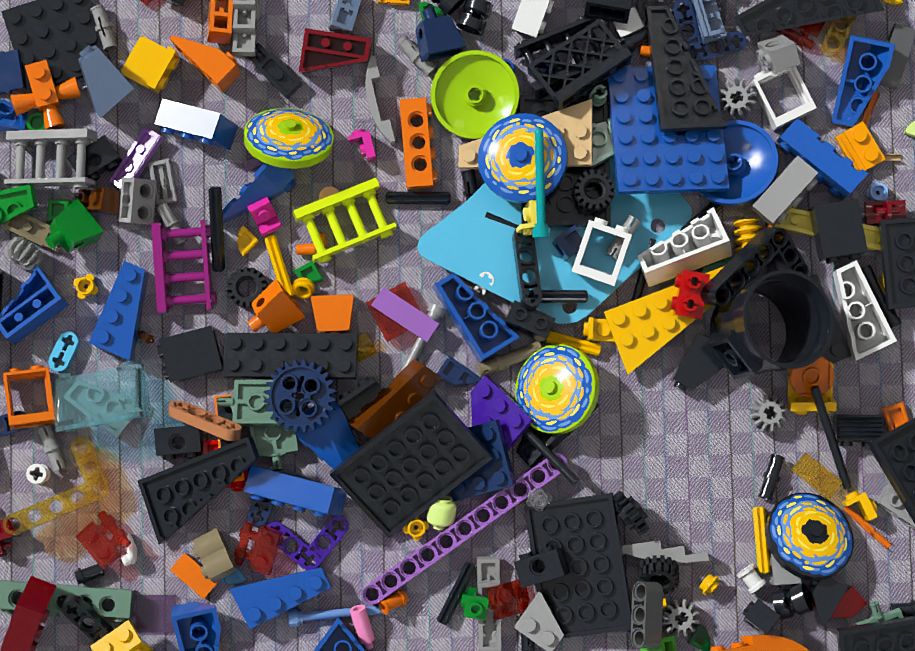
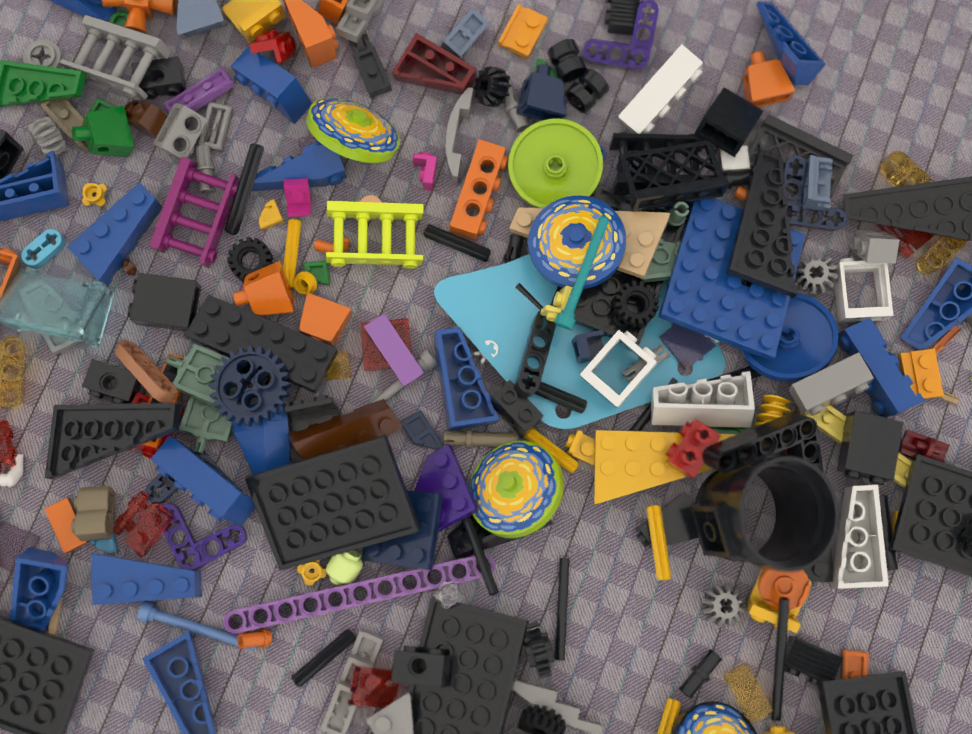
camera: 15 degrees right, 5 degrees down
(184, 86) = (282, 44): none -> red bracket
(362, 626) = (211, 651): bright pink cylinder -> none
(390, 47) = (492, 86): none -> black gear
(474, 606) = (335, 679): green bracket -> none
(635, 469) = (562, 609): none -> black bar
(651, 206) = (686, 344): none -> clear purple piece
(694, 384) = (658, 542): none -> yellow axle
(876, 186) = (926, 422): light blue plate -> none

